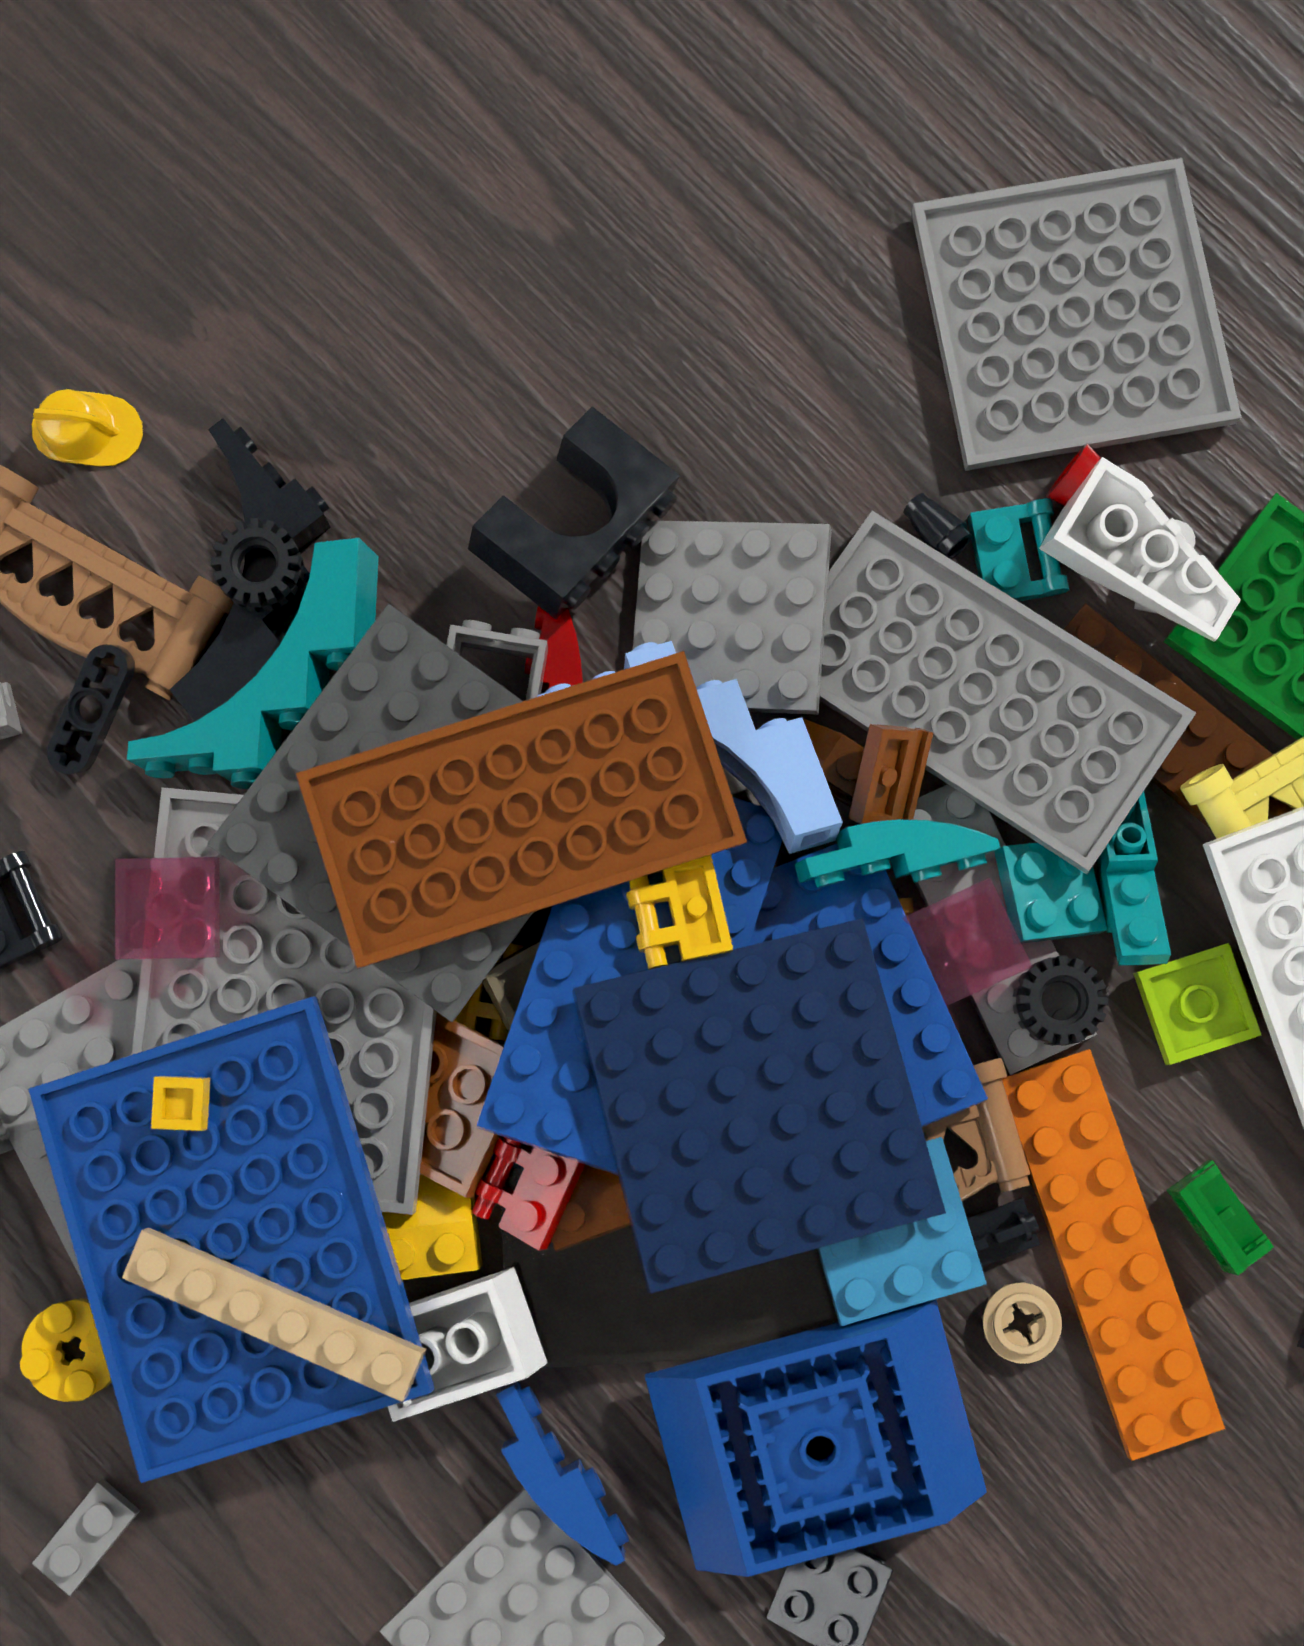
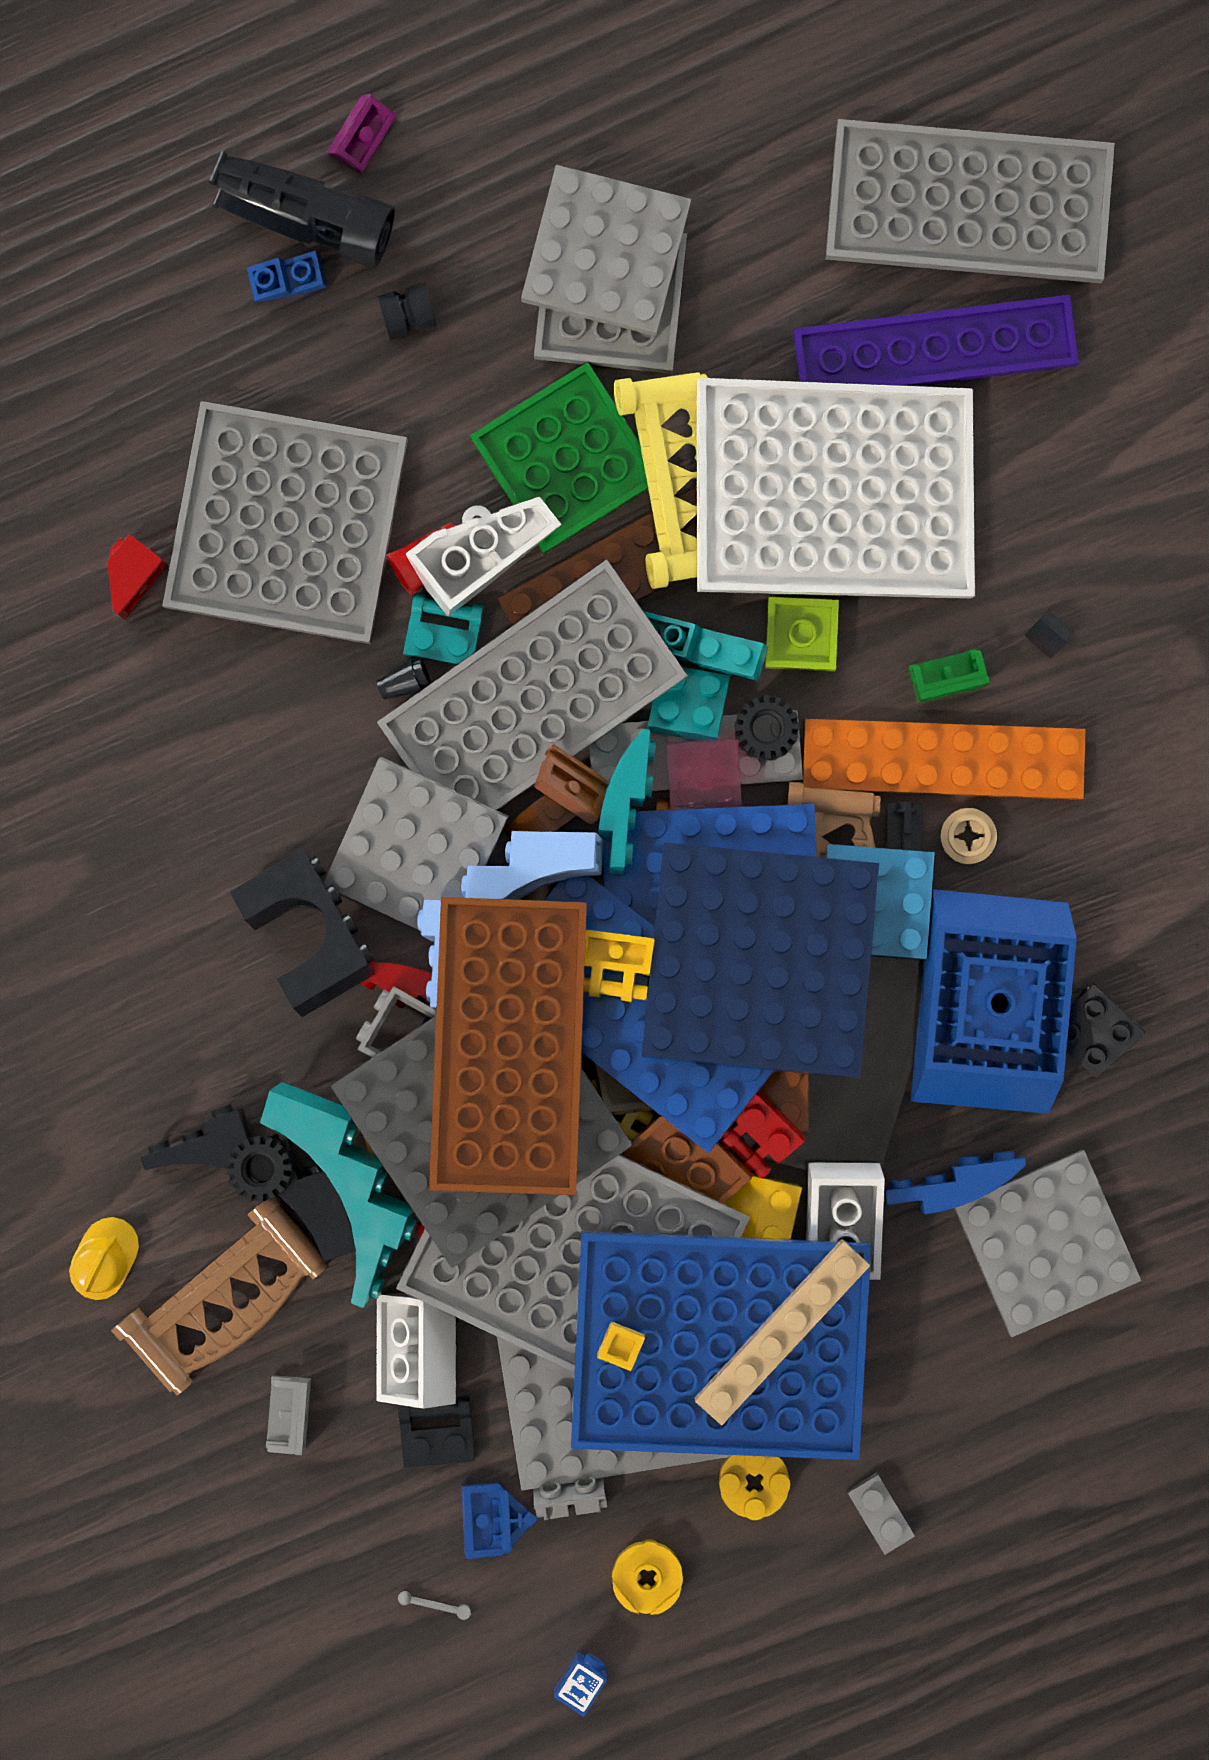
camera: 70 degrees left, 5 degrees up
(73, 850) = (415, 1352): none -> white slope
(87, 745) = (340, 1333): black beam -> none
(167, 908) = (483, 1312): clear pink plate -> none
(935, 155) = (131, 573): none -> red slope

